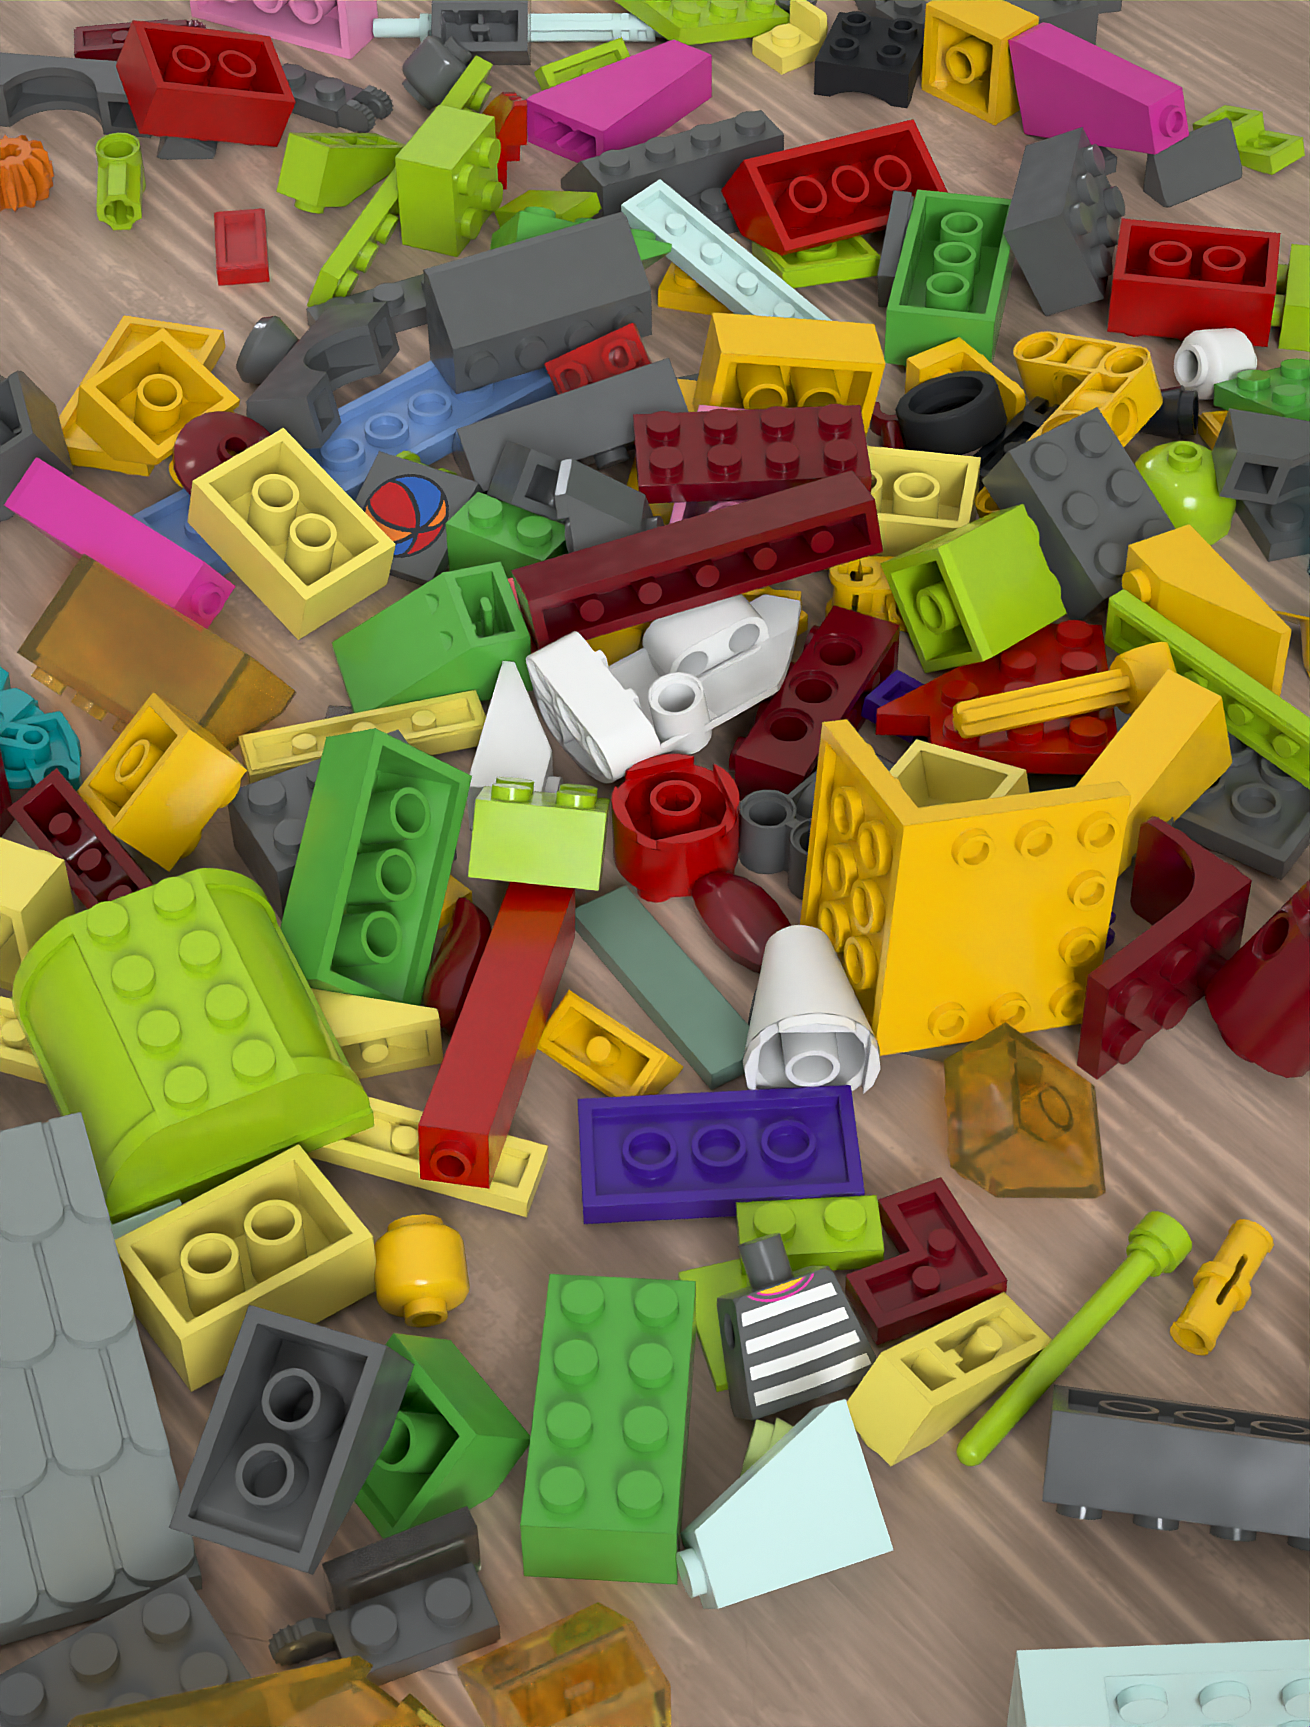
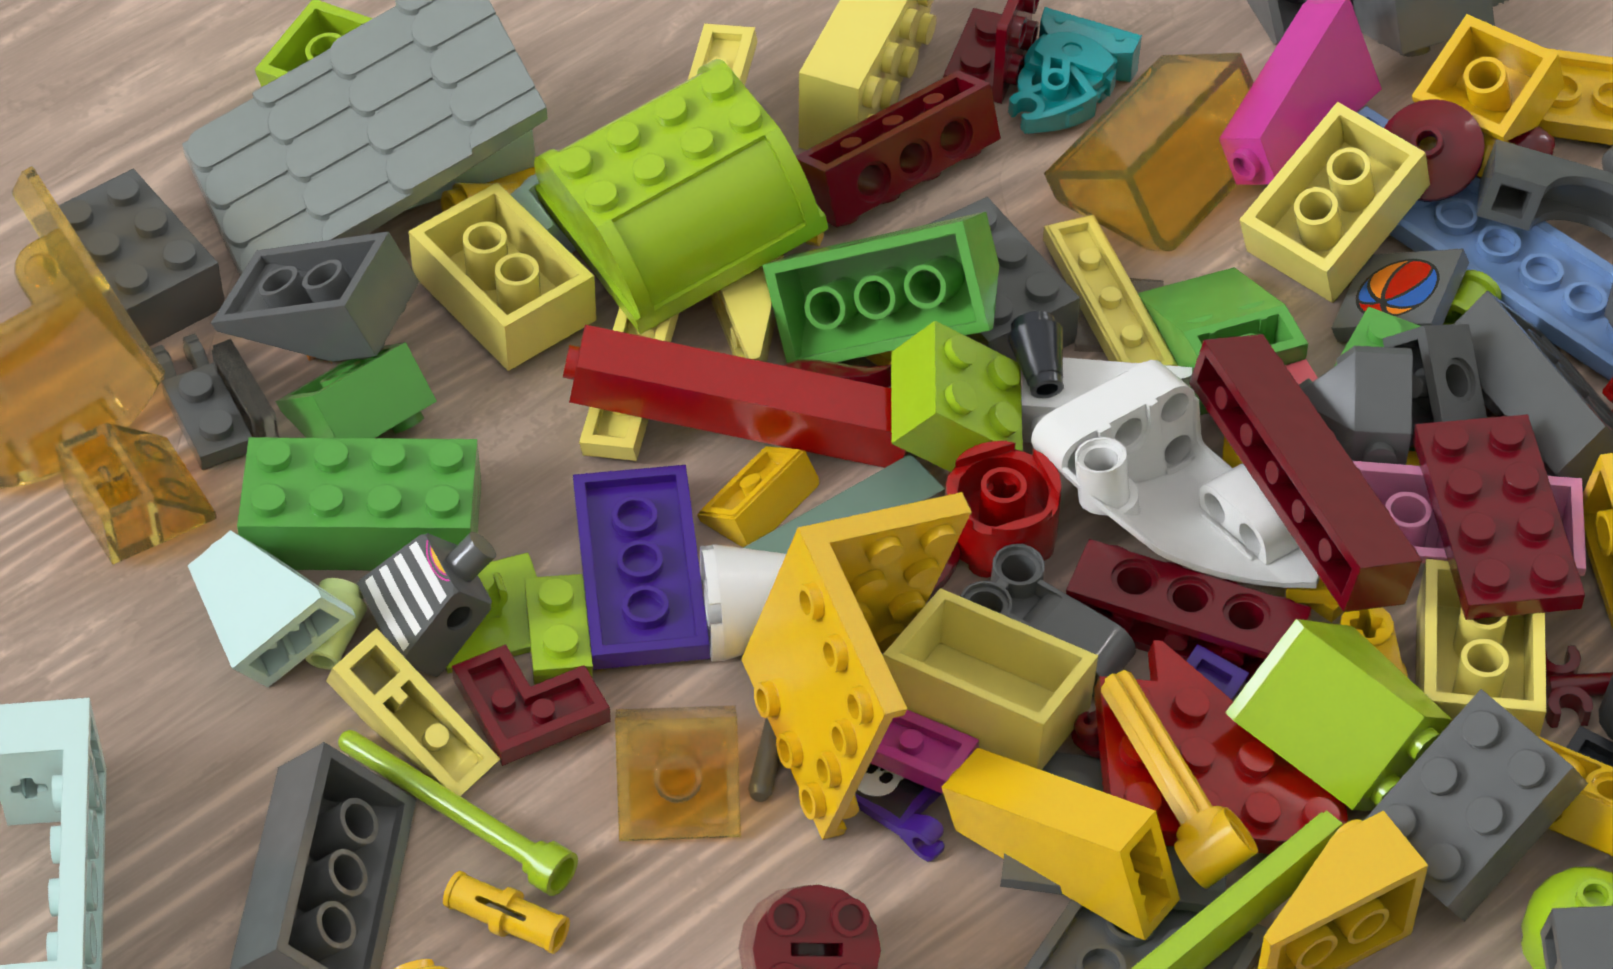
camera: 85 degrees right, 5 degrees up
(162, 782) = (988, 154): yellow brick -> none
(420, 1270) = (510, 383): yellow head -> none
(490, 755) = (1039, 352): none -> black cone
(1152, 981) = (901, 885): dark red bracket -> none

